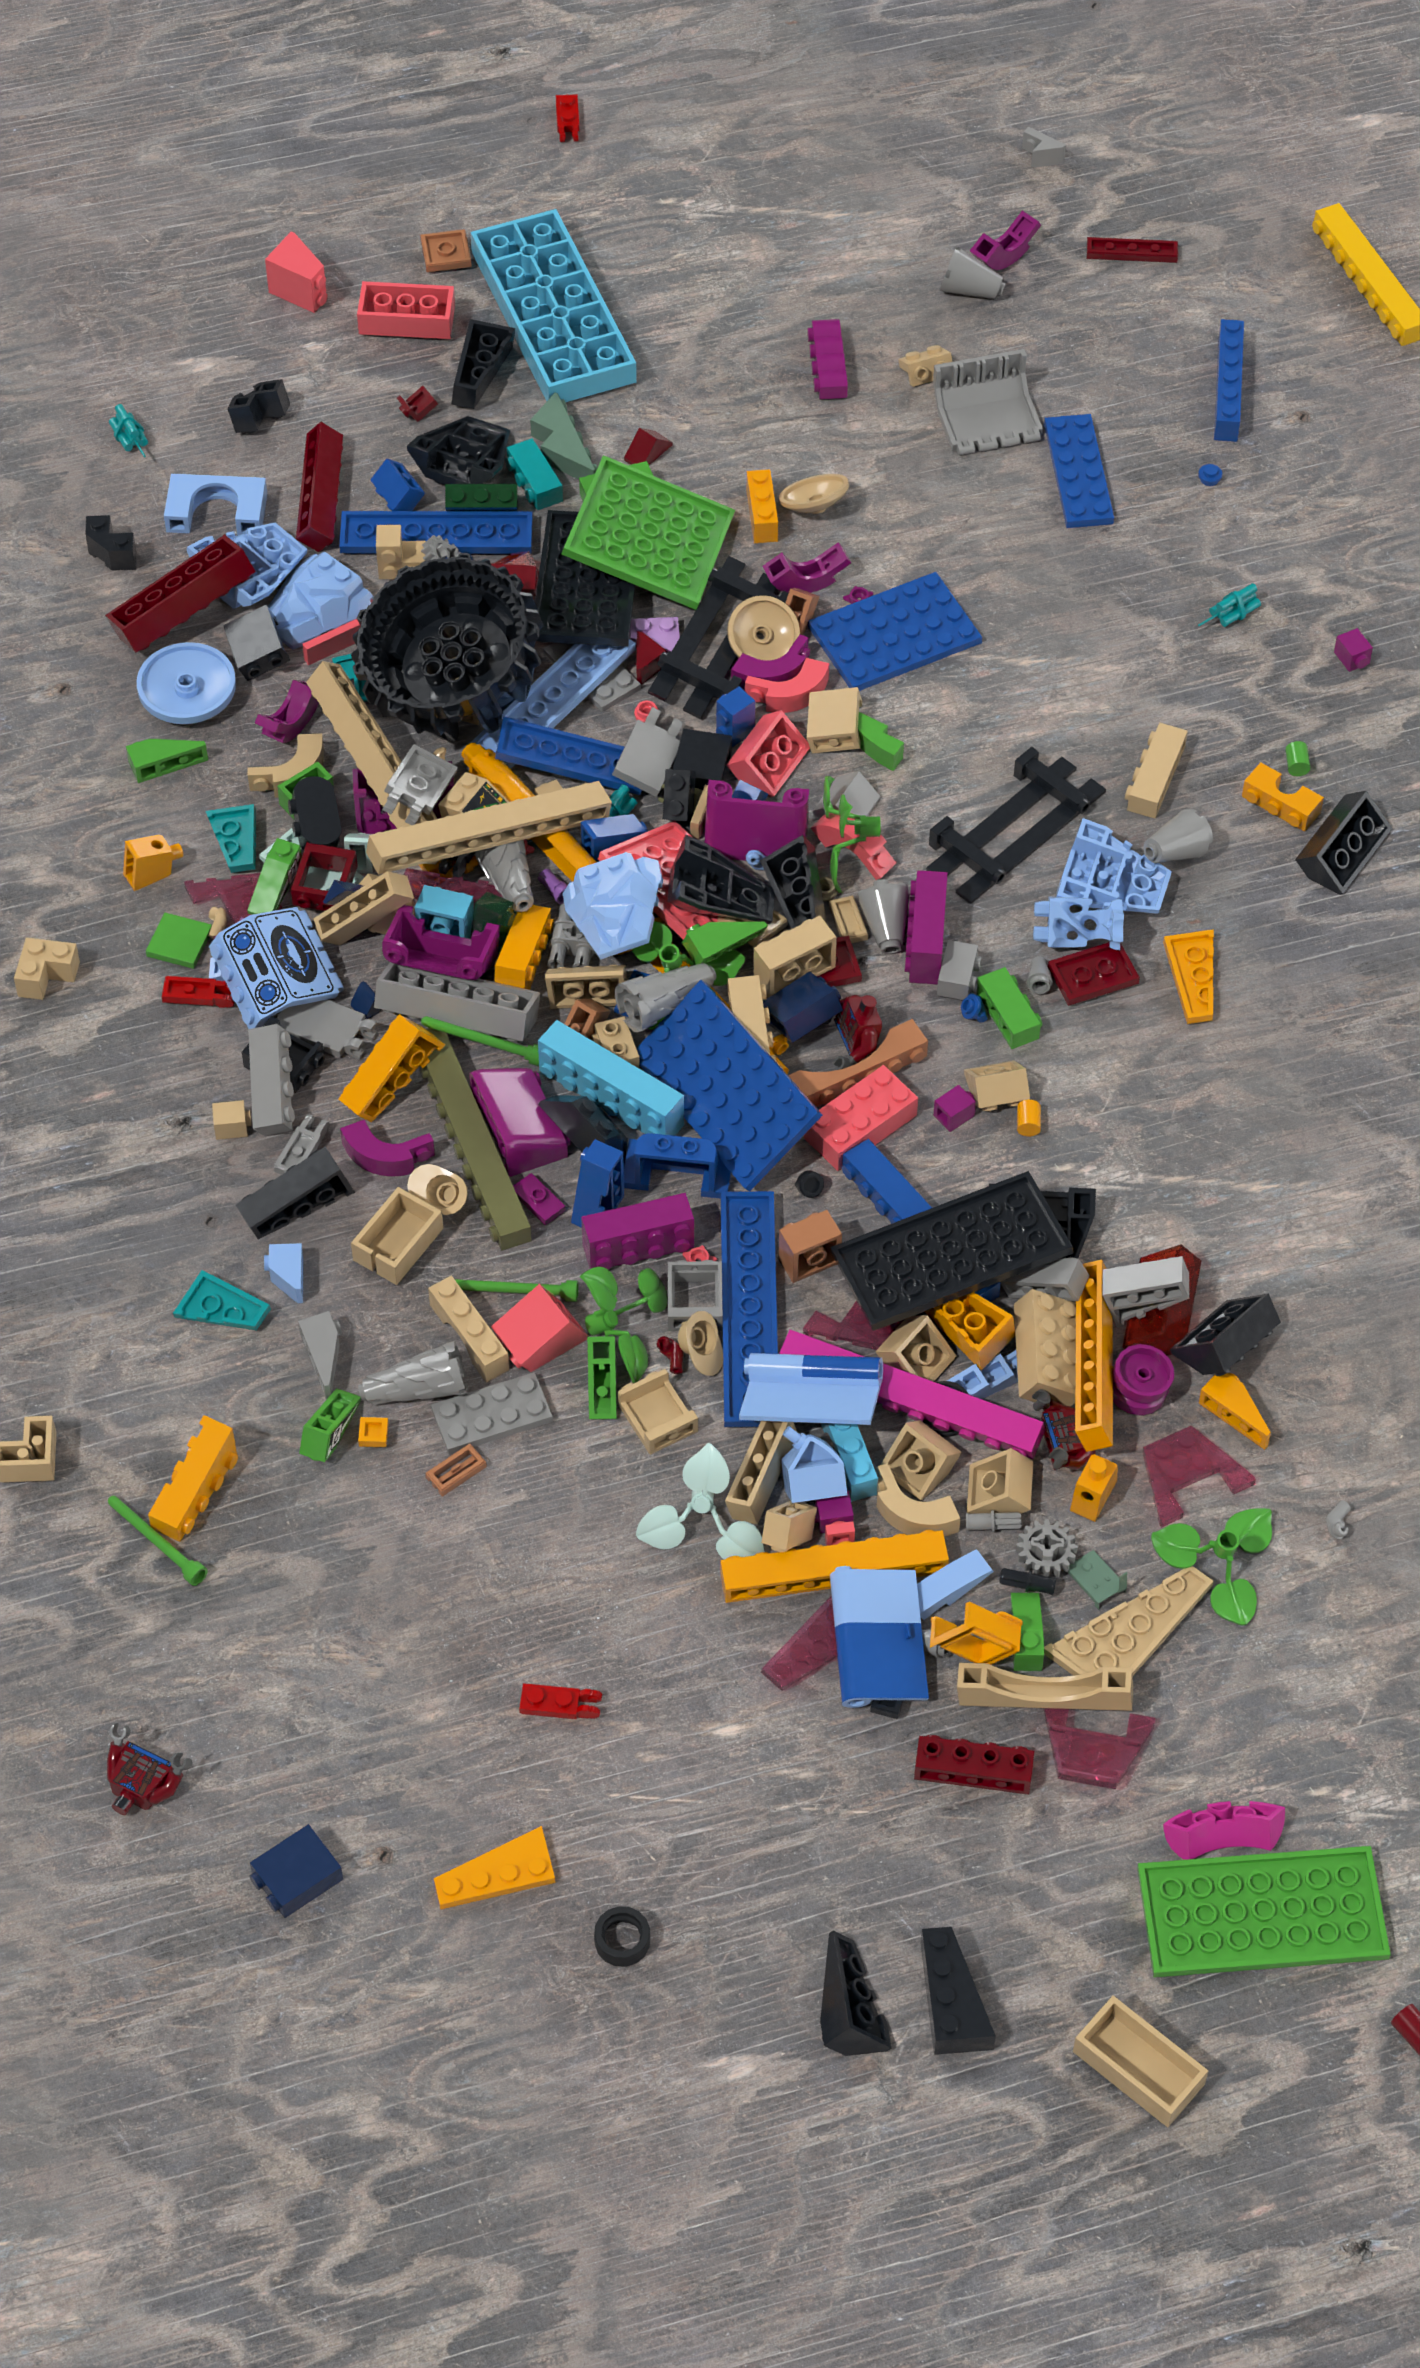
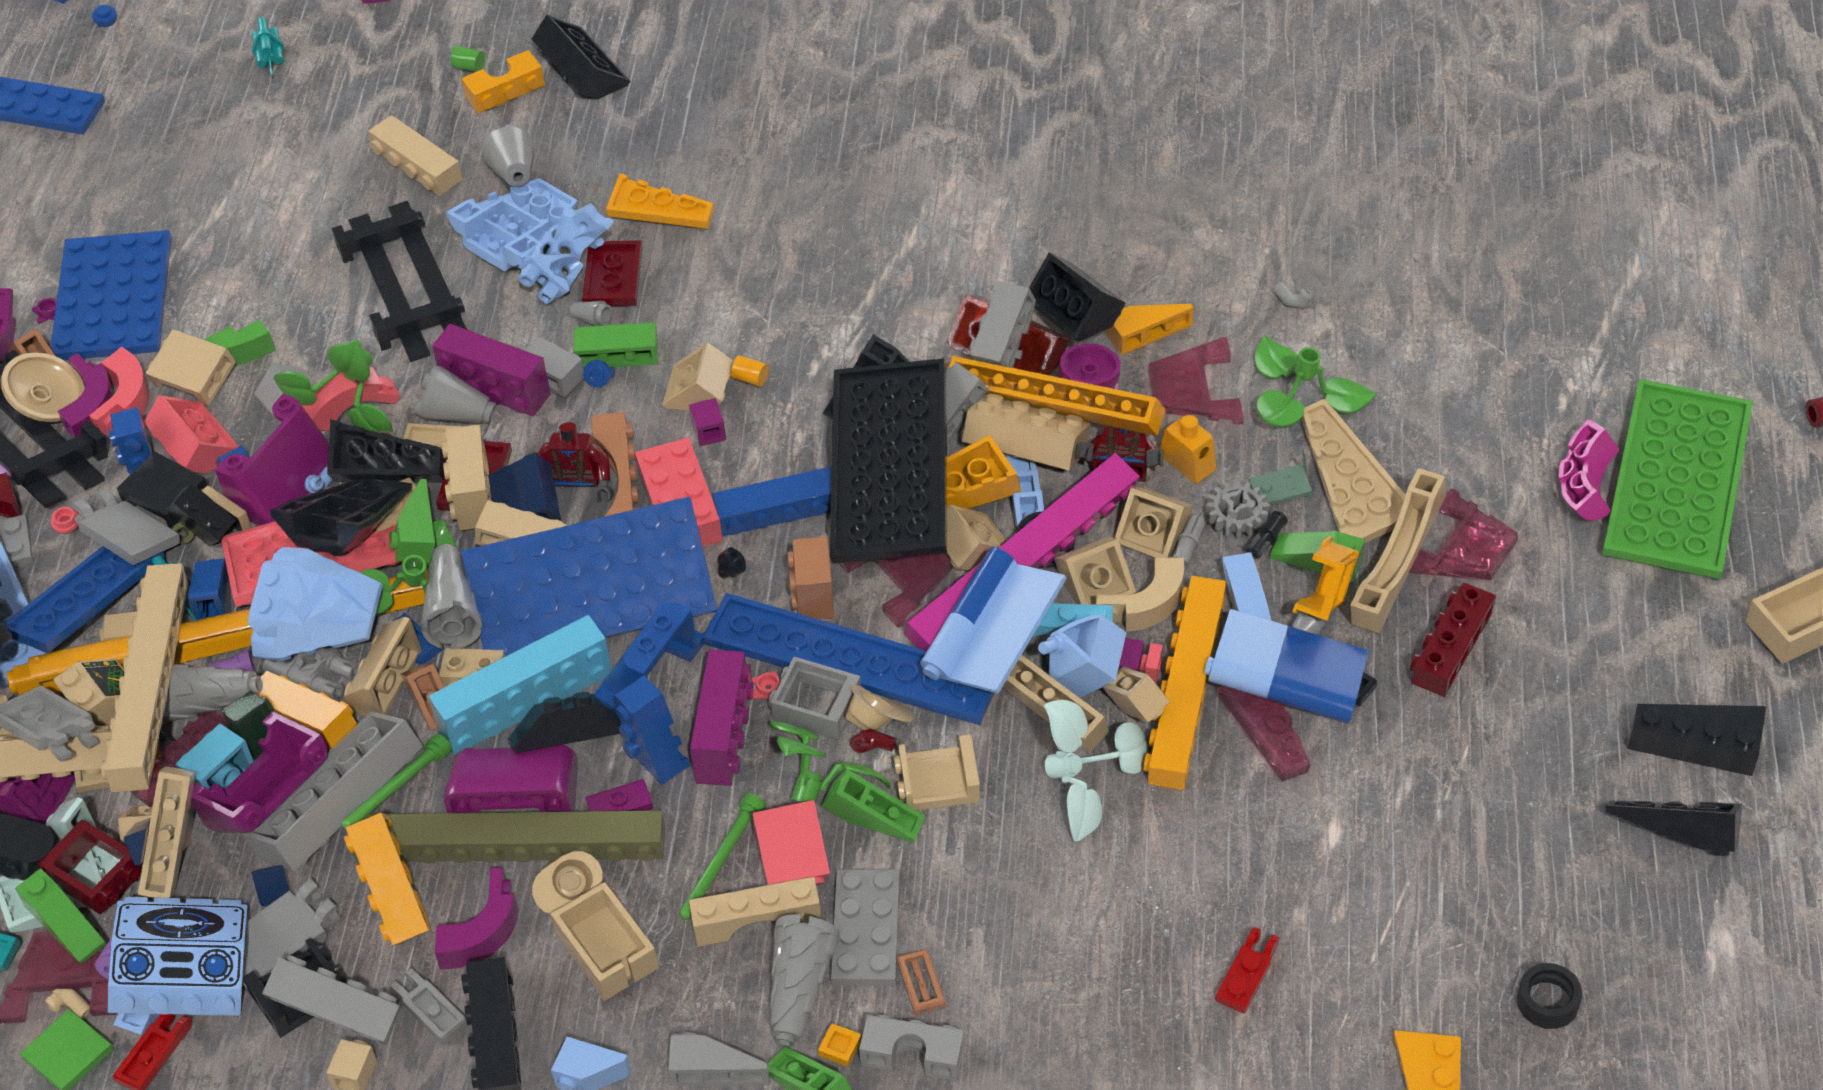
camera: 65 degrees left, 5 degrees down
(387, 1461) = (887, 1038): none -> light grey arch

